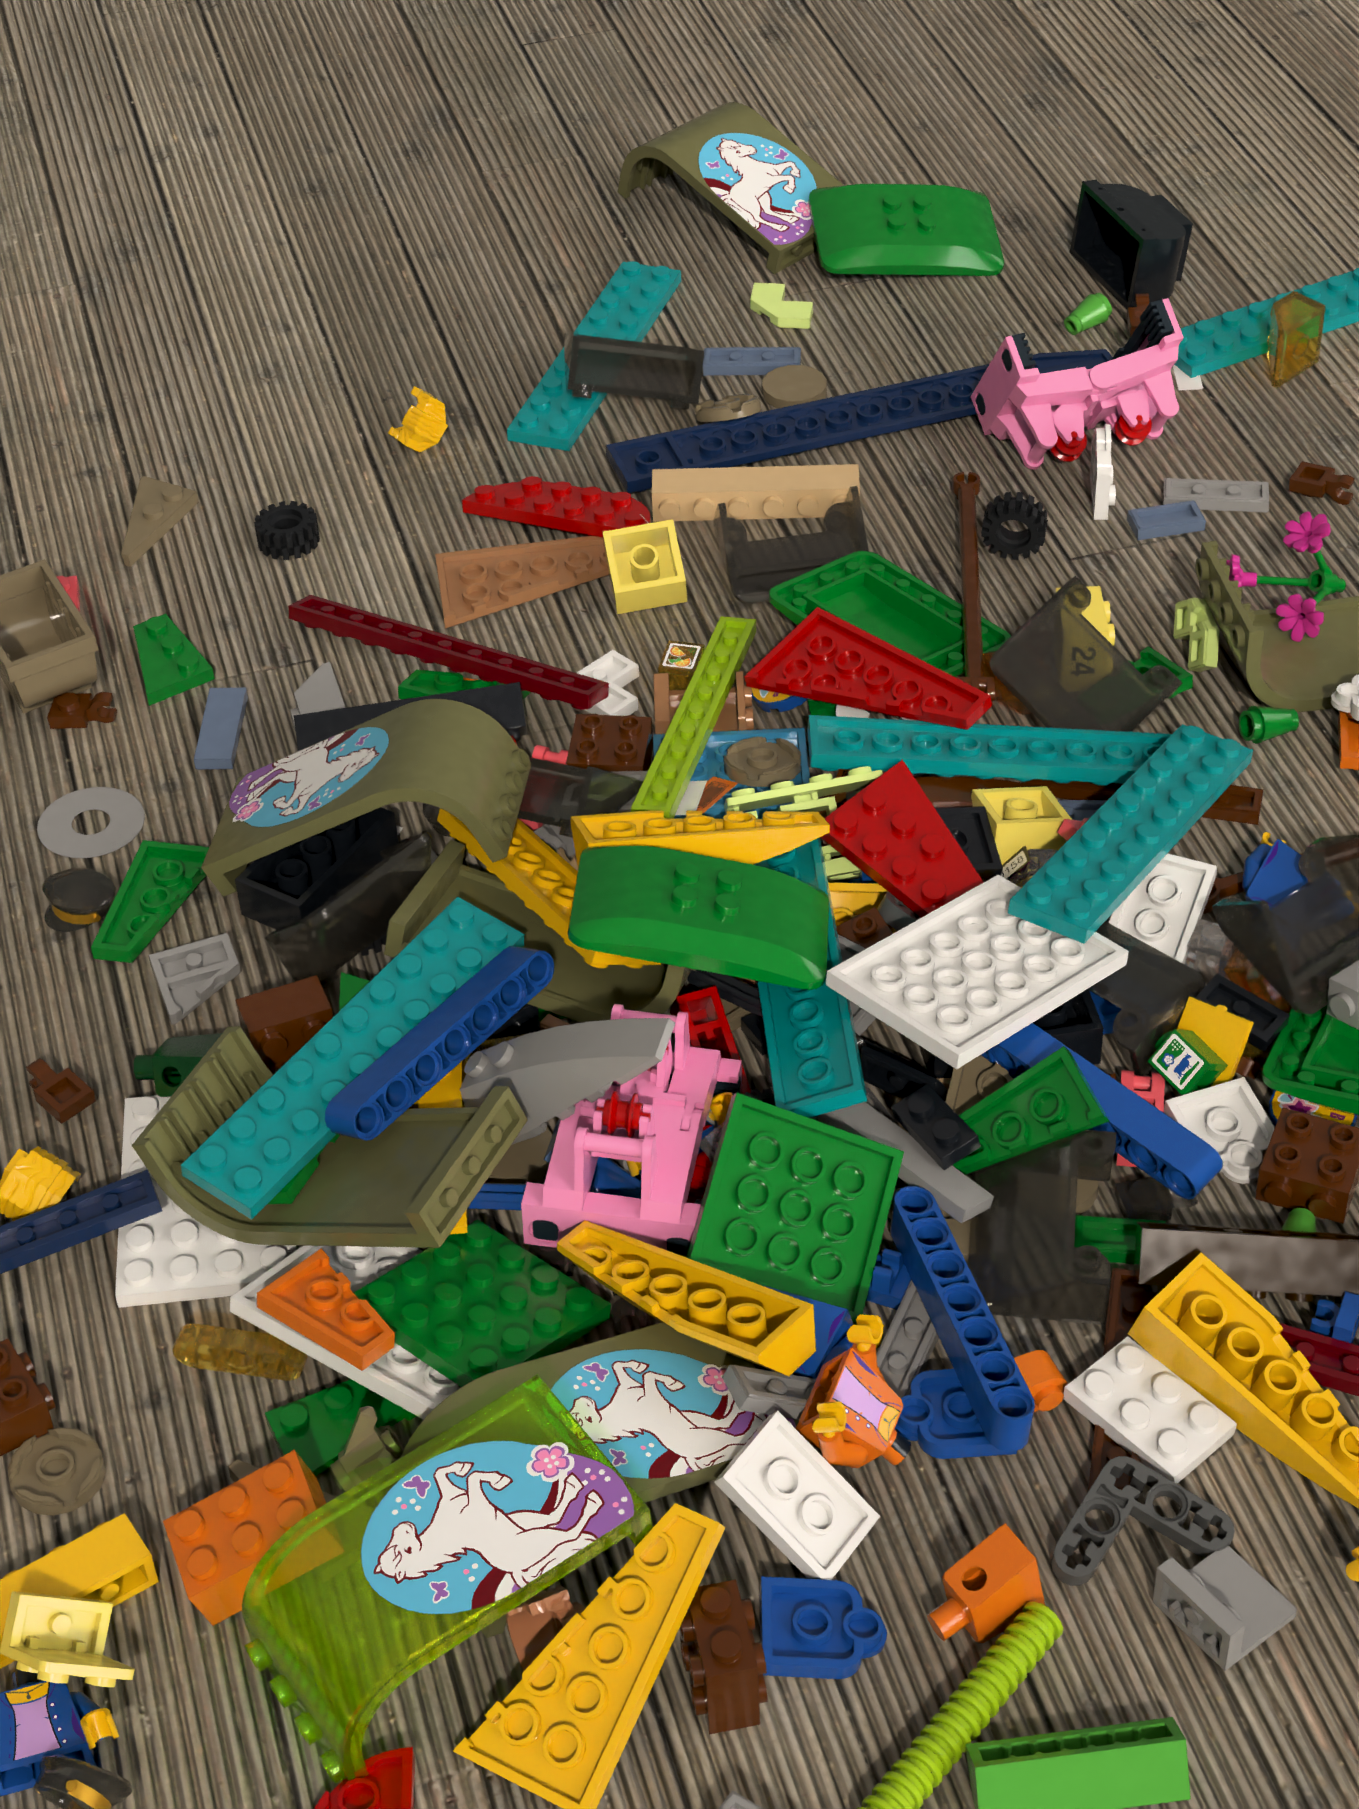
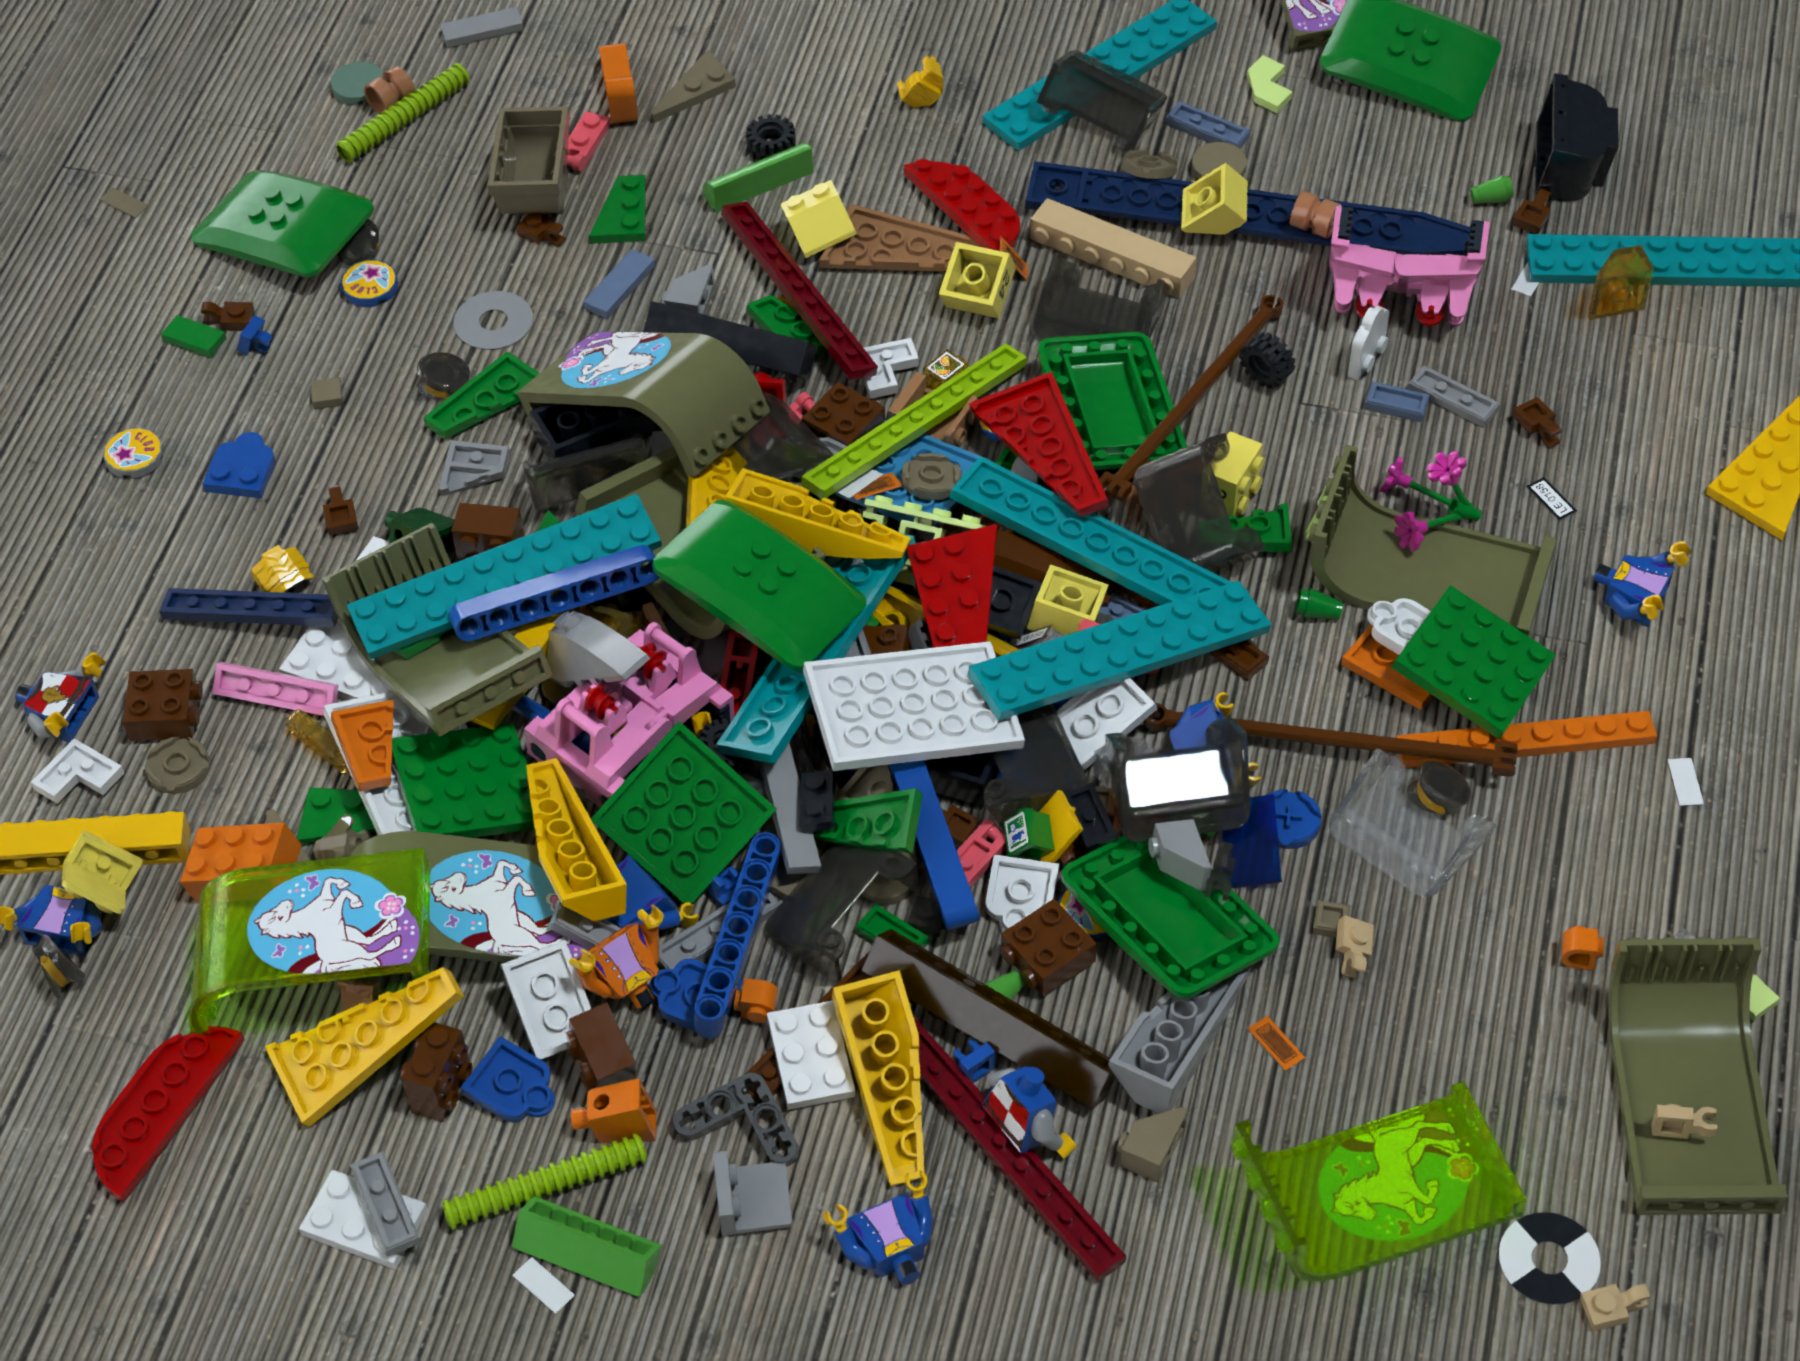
camera: 30 degrees right, 10 degrees up
(71, 545) = (618, 83): none -> orange beam
(128, 1320) = (273, 688): none -> bright pink plate
(303, 568) = (759, 177): none -> bright green brick
(414, 576) = (818, 218): none -> light yellow slope
(834, 410) = (1215, 202): none -> light yellow slope
(916, 1522) = (600, 1048): none -> reddish brown brick
(947, 384) = (1314, 214): none -> nougat wheel

